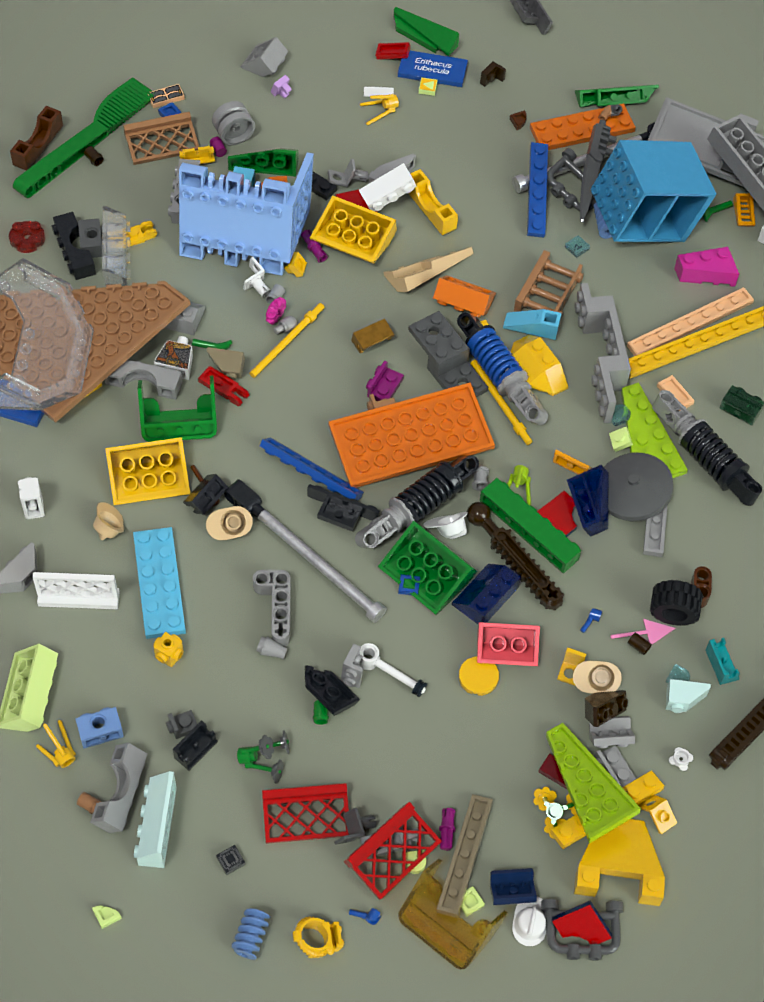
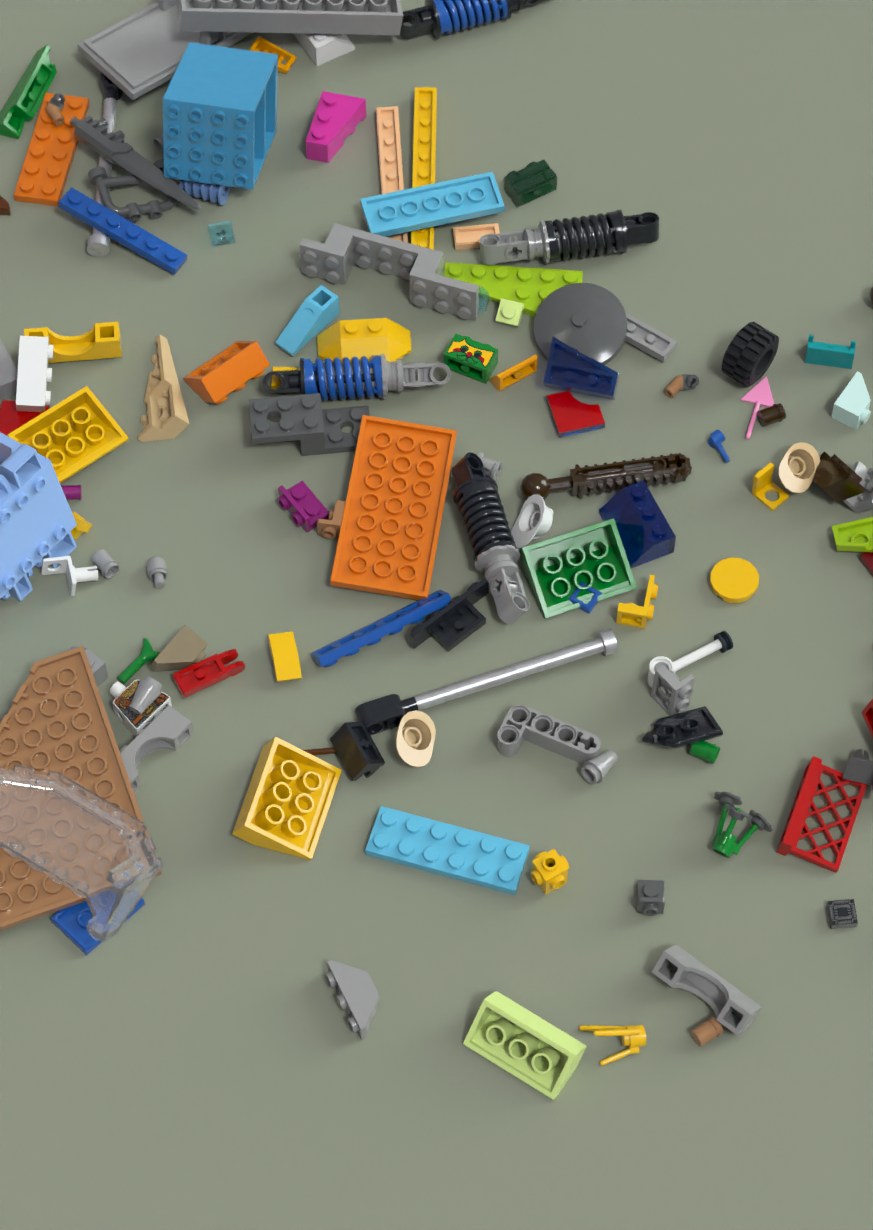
camera: 60 degrees left, 0 degrees up
(31, 498) = (262, 939): white brick -> none
(85, 596) = (423, 939): white fence -> none
(93, 736) = (619, 969): medium blue brick -> none
(106, 915) = (852, 1067): yellowish green tile -> none
(108, 521) = (339, 871): tan piece -> none
(156, 820) = (766, 964): light aqua slope -> none
(178, 353) = (146, 693): none -> light grey cone
(188, 424) = (238, 735): green windscreen -> none
(194, 745) = (686, 894): black hinge -> none
(257, 422) = (284, 656): none -> yellow slope
(275, 310) = (135, 570): dark pink gear -> none
(309, 317) = (160, 543): yellow bar -> none
(372, 335) = (230, 488): pearl gold hinge -> none
(415, 626) = (635, 615): none -> yellow bracket
(508, 644) = (714, 532): coral slope -> none
(519, 427) = (439, 401): yellow bar -> none
(519, 477) = (506, 429): lime plant -> none
(530, 525) = (575, 446): green brick -> none
(537, 275) = (257, 303): medium nougat fence -> none
(565, 430) = (471, 358): none -> green brick
(630, 572) = (681, 382): none -> arm
(677, 351) = (432, 205): none -> medium azure plate
(678, 673) = (825, 399): clear light blue tile -> none
(704, 585) = (728, 323): reddish brown beam -> none

